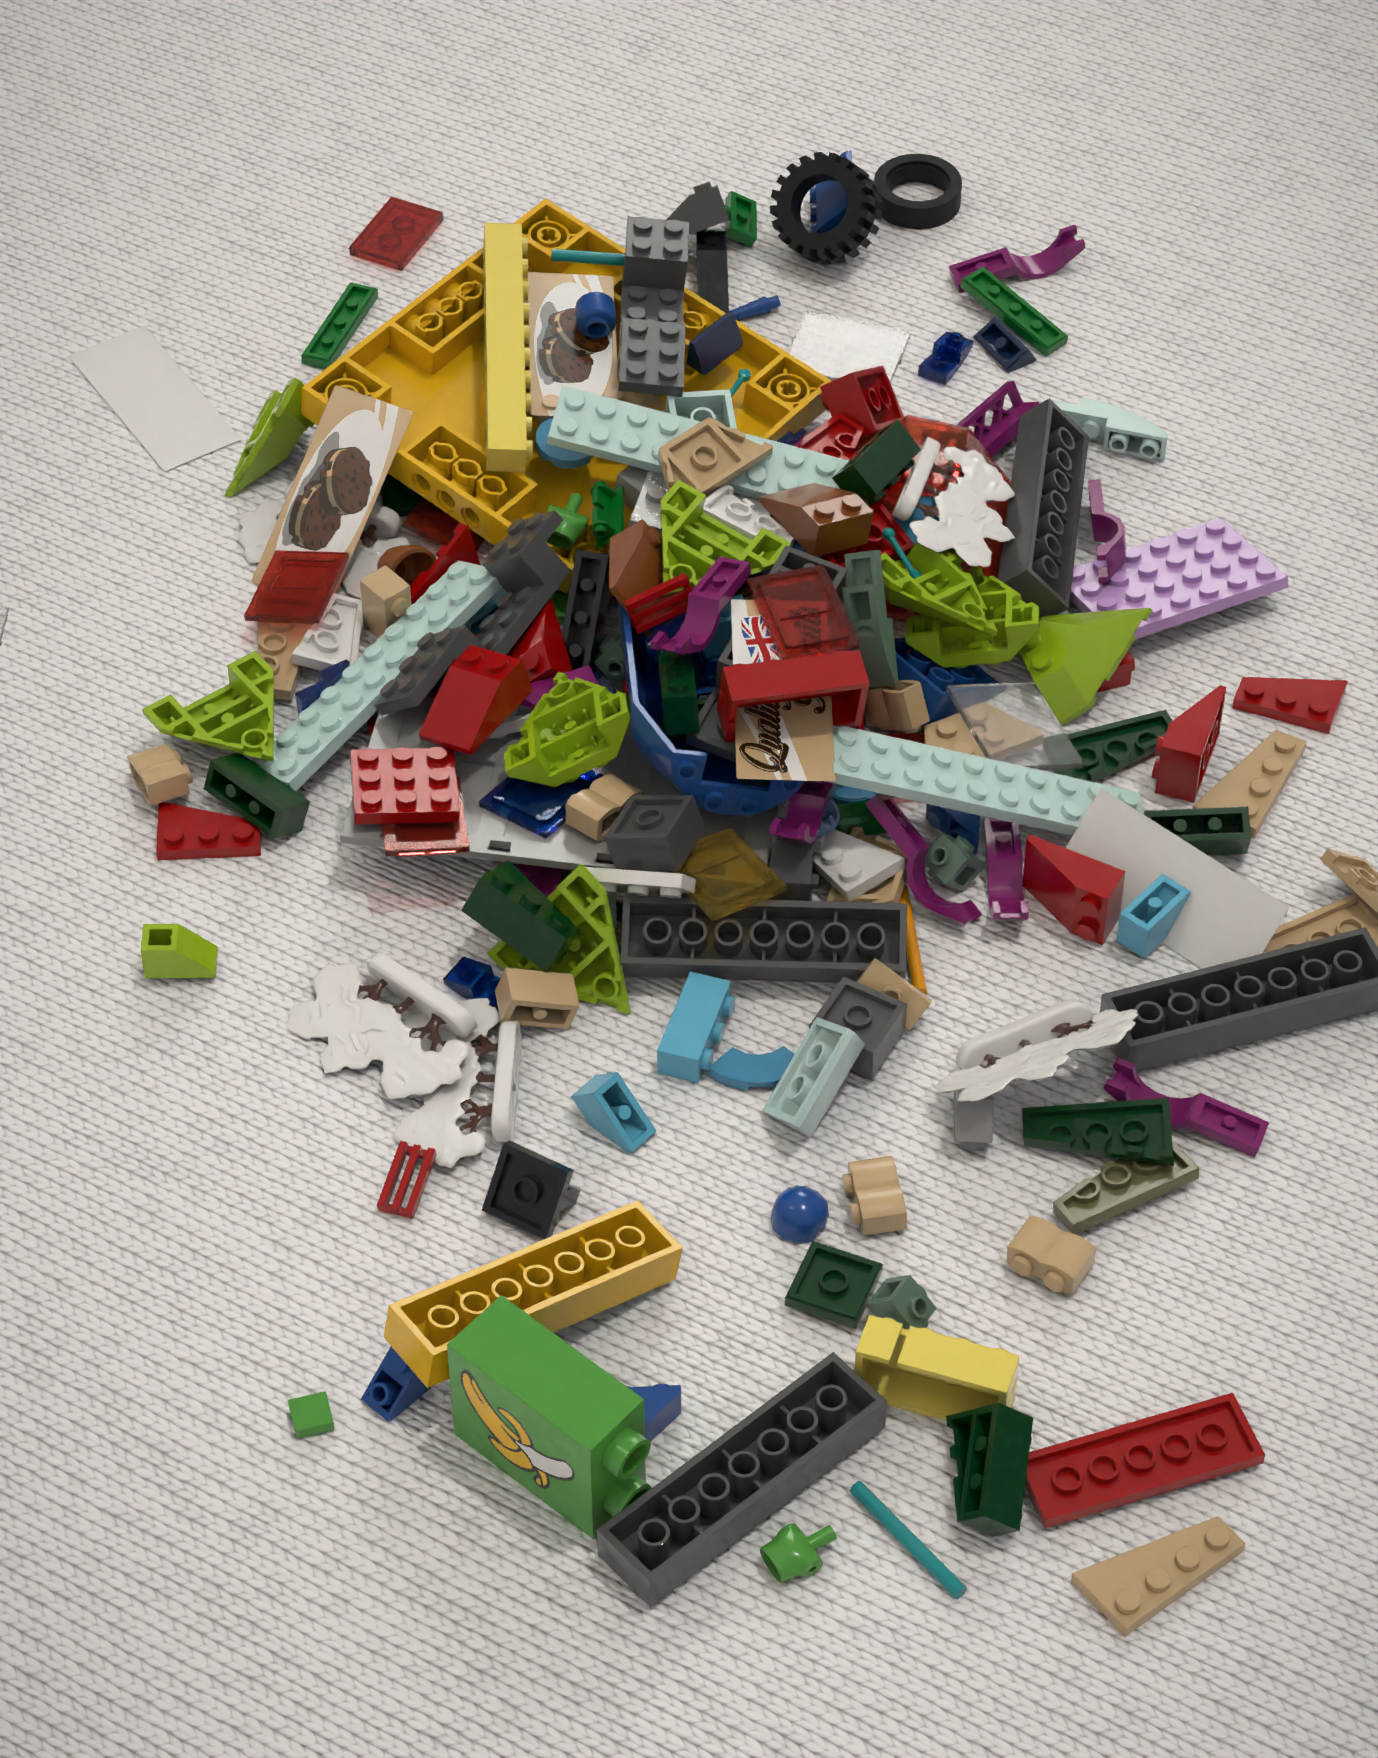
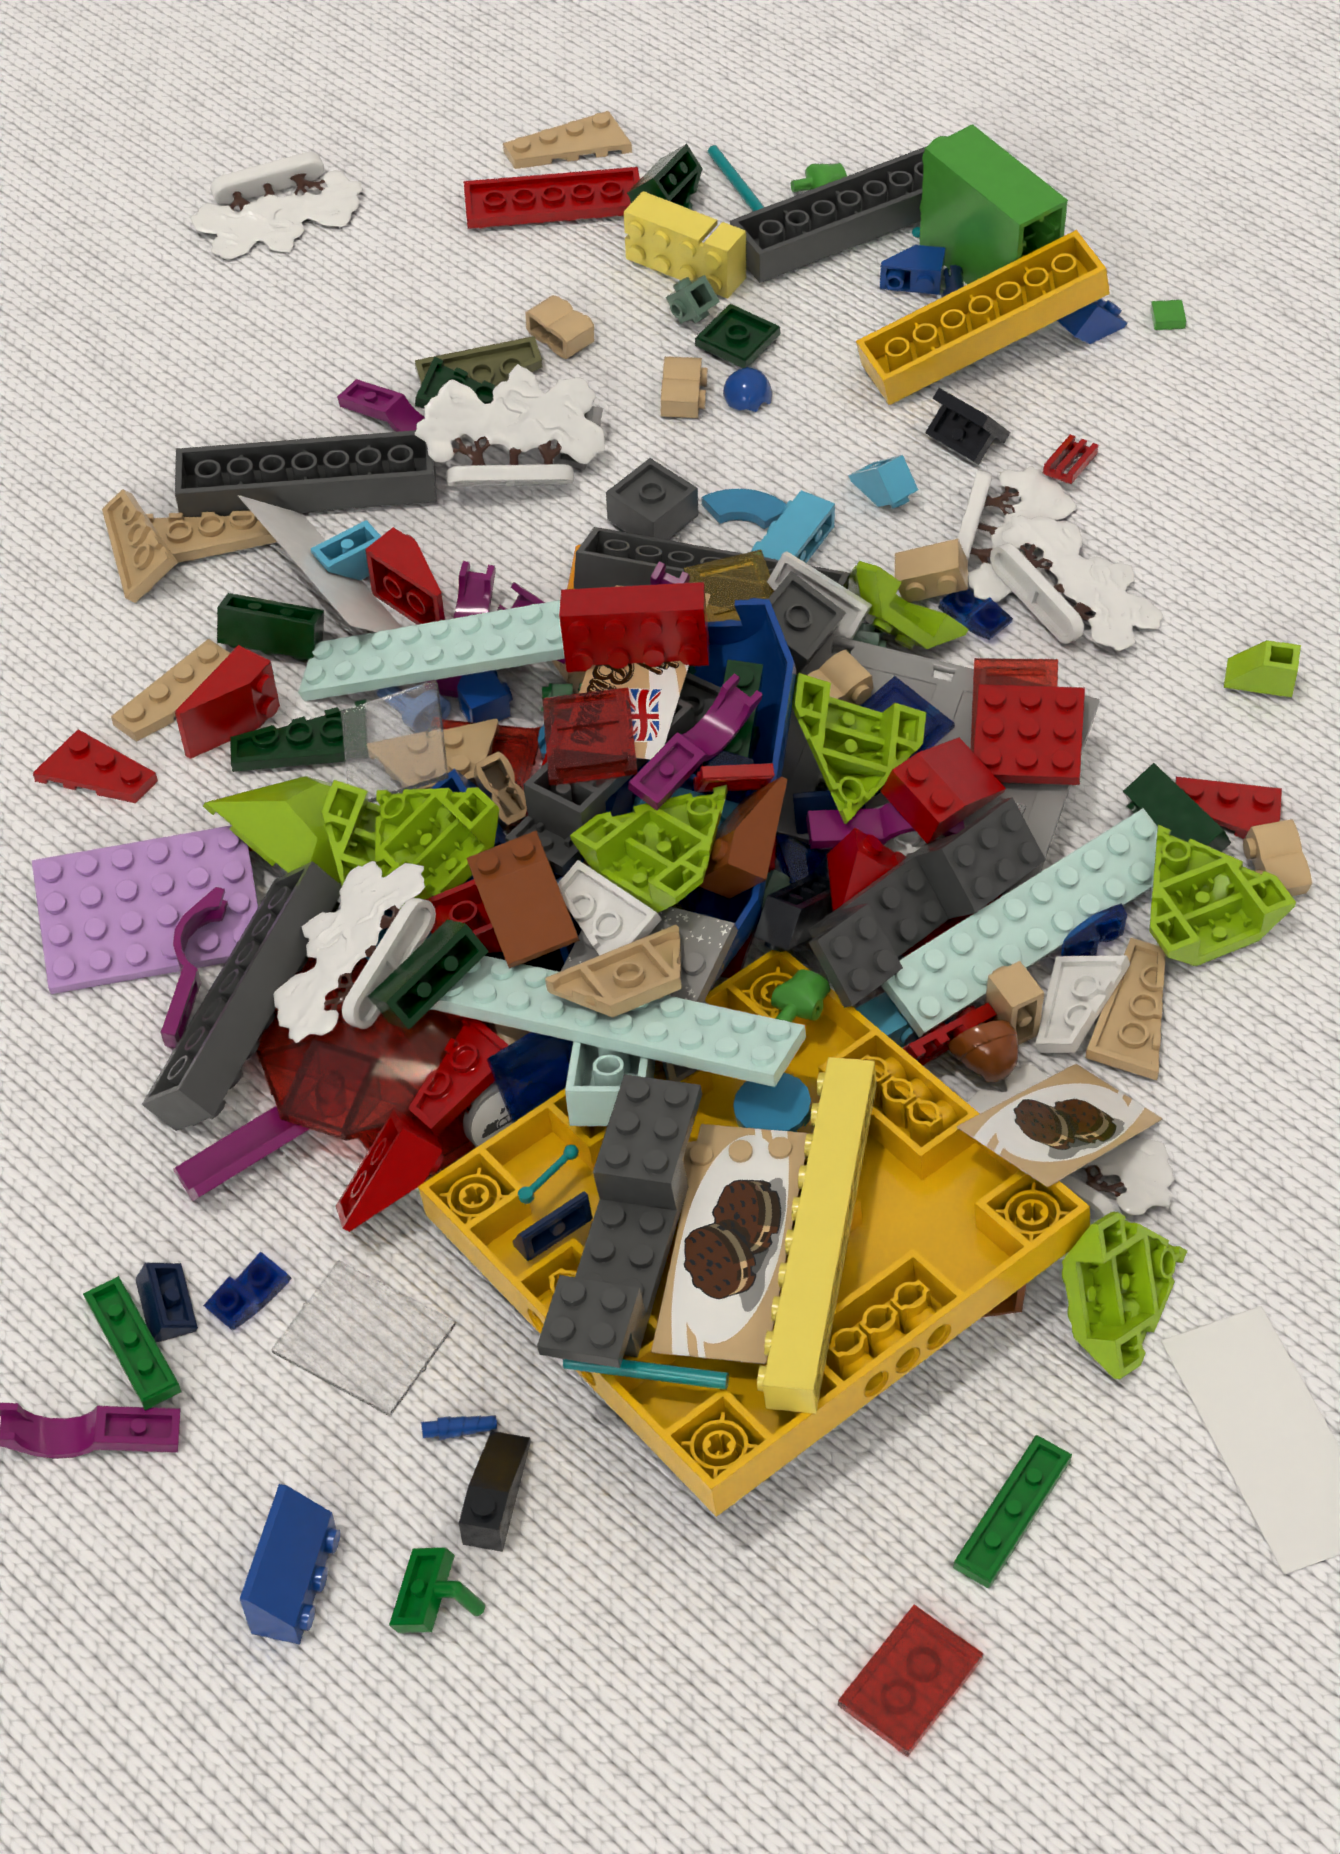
camera: 165 degrees left, 5 degrees up
(296, 587) = (1113, 1048): clear red piece -> none
(521, 916) = (940, 607): dark green wedge -> none
(595, 314) = (694, 1255): blue head -> none
(608, 512) = (750, 989): green hinge -> none
(702, 208) = (509, 1545): dark grey slope -> none
(814, 1076) = (705, 450): light aqua slope -> none
(857, 219) = (313, 1506): black tyre -> none
(868, 616) = (506, 784): sand green slope -> none
(884, 980) = (611, 520): tan plate -> none
(888, 534) = (436, 863): teal hinge -> none
(924, 169) = (134, 1557): black tyre -> none
(1117, 428) = (103, 1131): light aqua slope -> none

